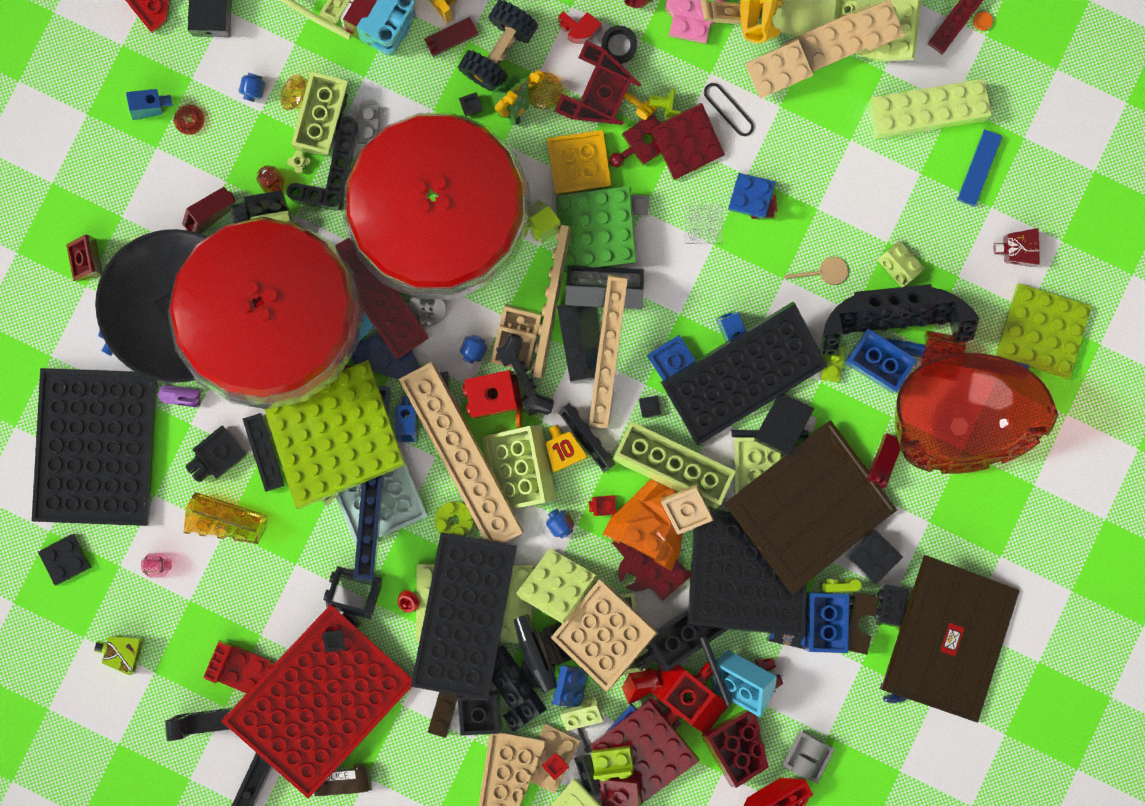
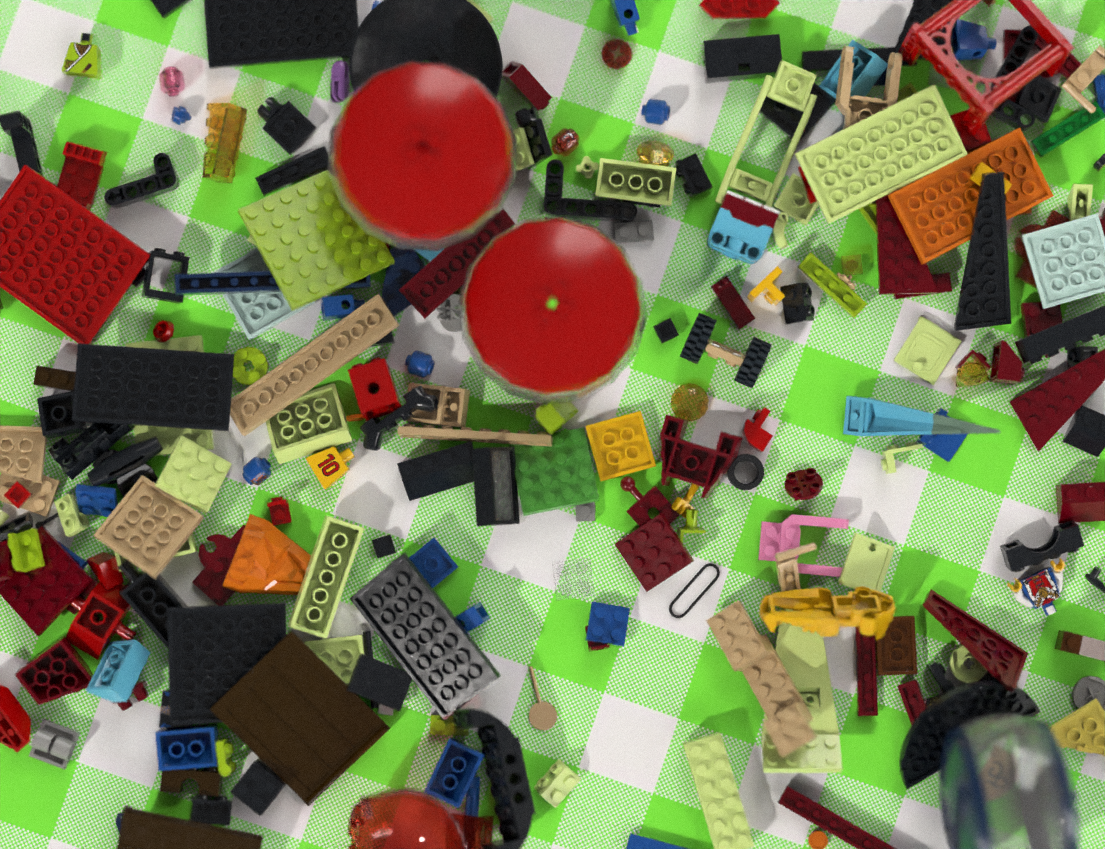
camera: 85 degrees right, 0 degrees up
(192, 560) = (180, 115): none -> blue plate
(258, 608) = (141, 185): none -> black beam
(320, 59) = (693, 175): none -> black bracket
(333, 640) = (114, 262): black plate -> none
(512, 96) = (677, 372): torso -> none
(586, 437) = (349, 483): black plate -> none
(608, 351) = (430, 497): tan plate -> none
(687, 509) = (281, 594): tan plate -> none
(715, 669) = (127, 641): black bar -> none
(884, 461) = (352, 786): dark red hinge -> none

